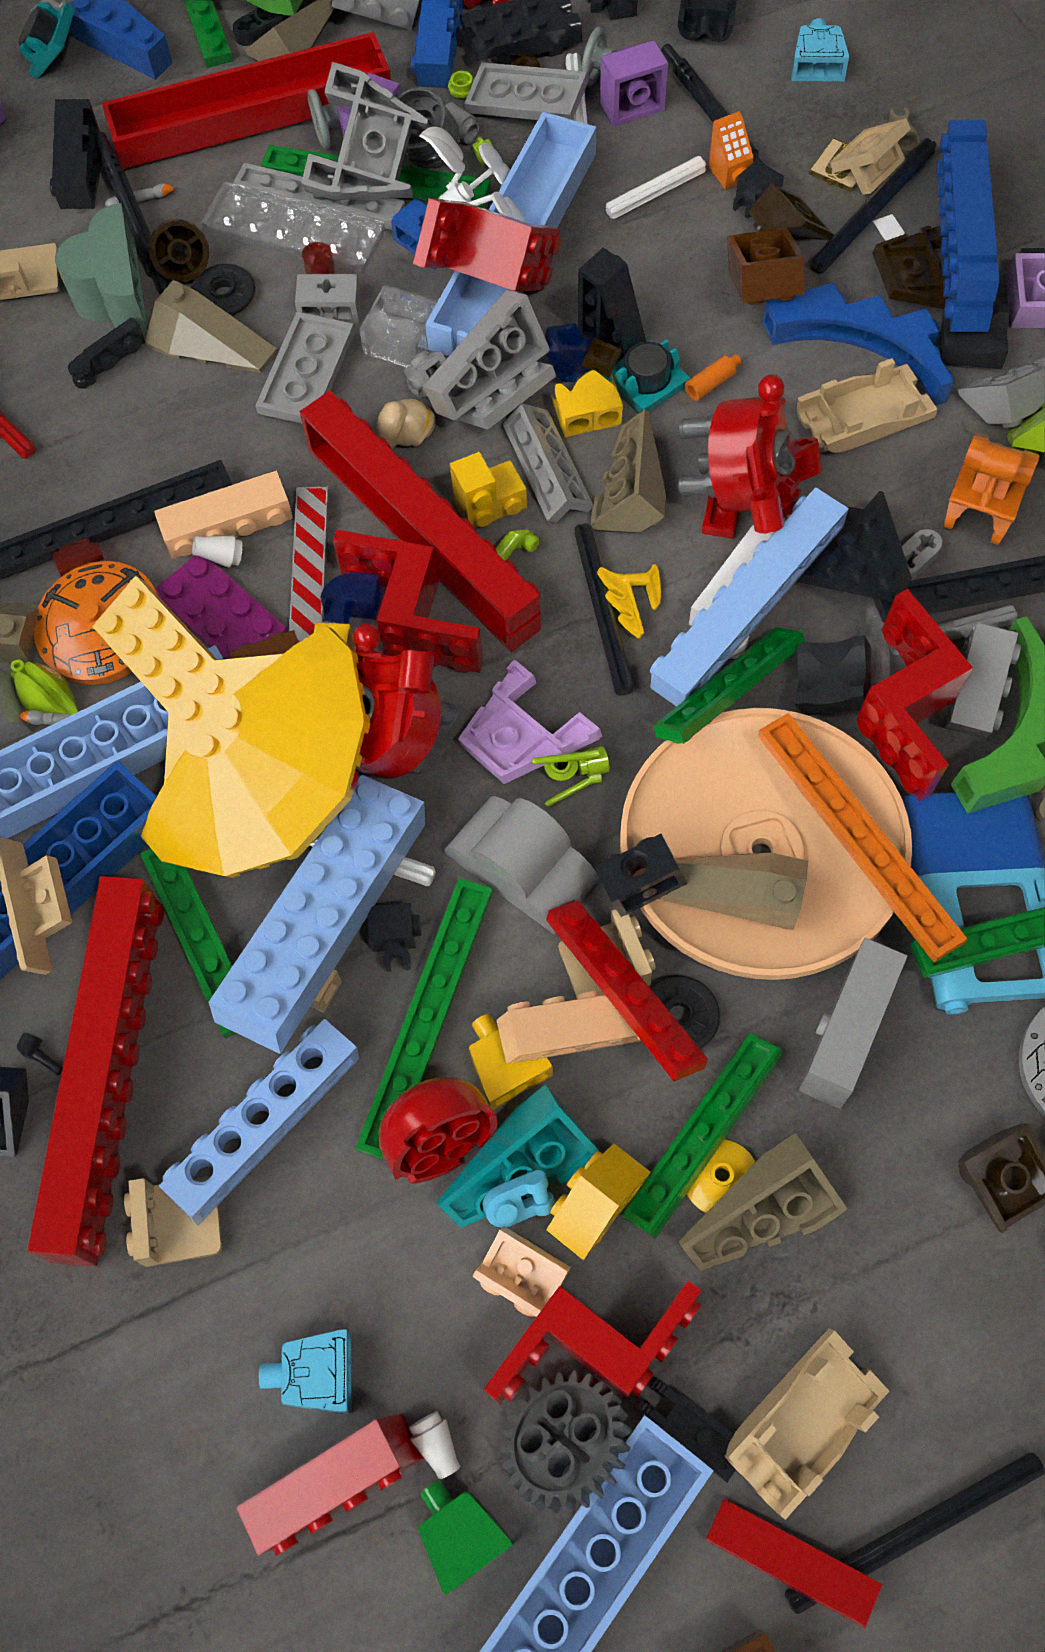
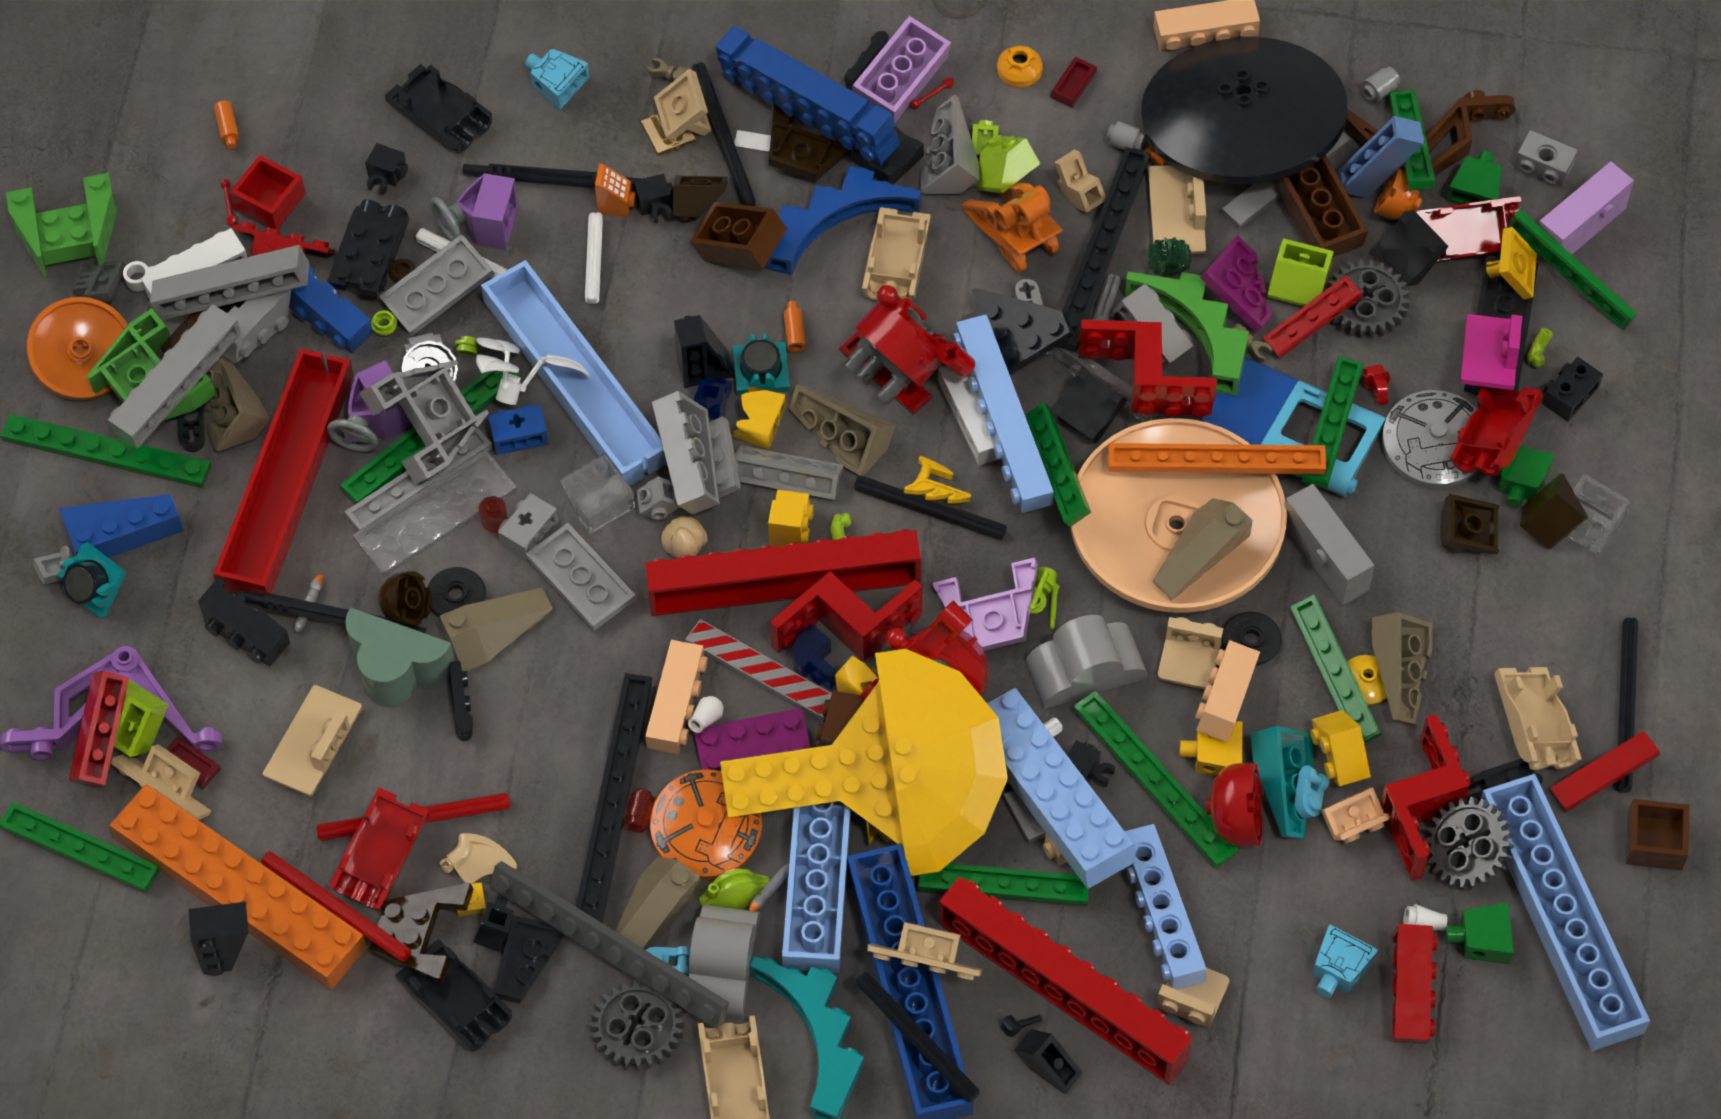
camera: 60 degrees left, 5 degrees down
(487, 245) = (604, 390): red bracket -> none
(601, 357) = (734, 382): dark brown tile -> none
(627, 991) = (1224, 648): red plate -> none
(631, 891) = (1162, 607): black brick -> none

